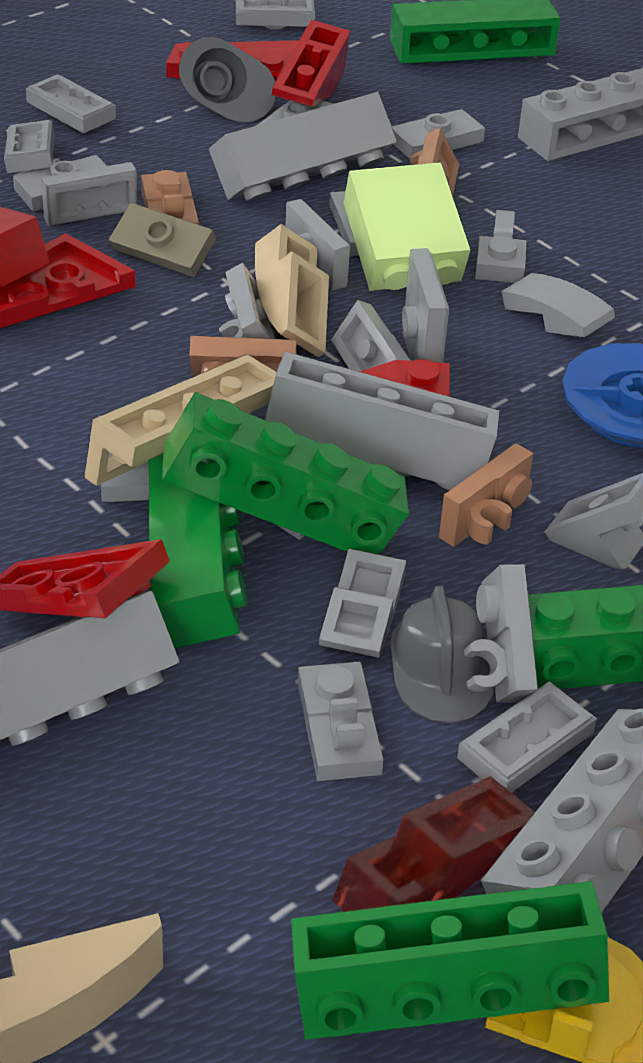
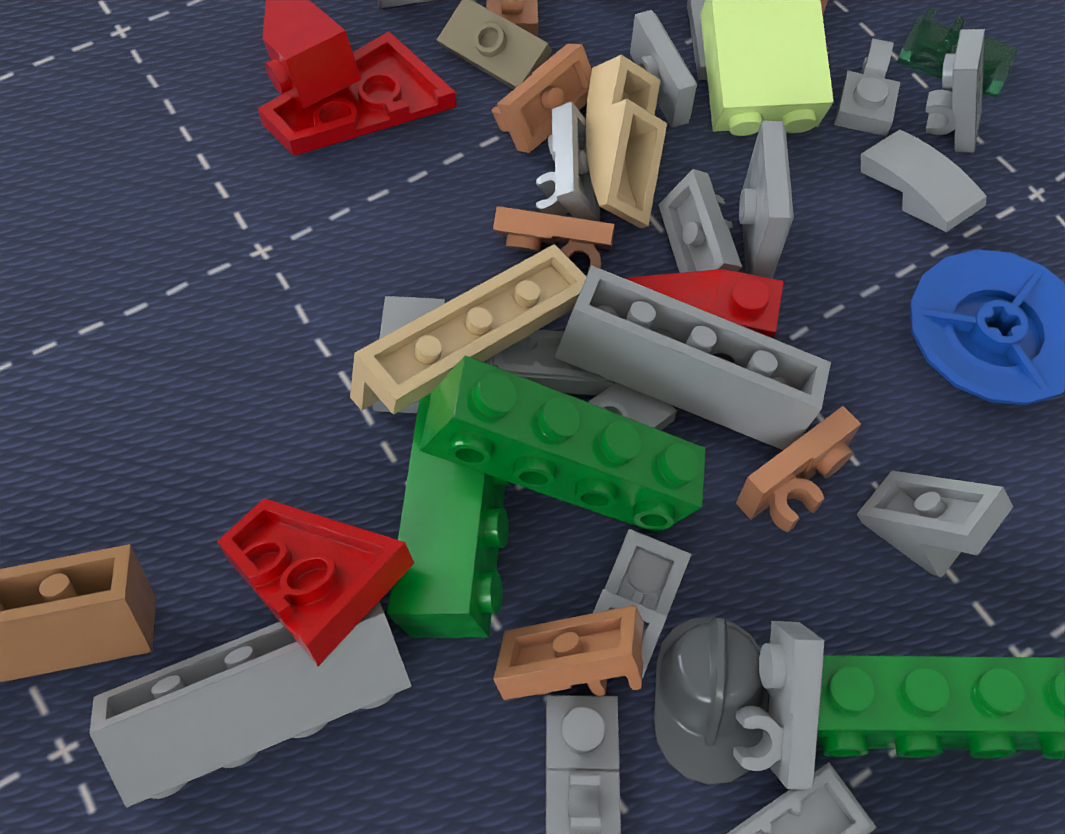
camera: 10 degrees right, 20 degrees up
(204, 276) = (528, 108): none -> nougat plate
(294, 636) = (571, 653): none -> nougat plate
(579, 225) = (931, 41): none -> clear green plate
(582, 248) = (963, 106): none -> light grey plate

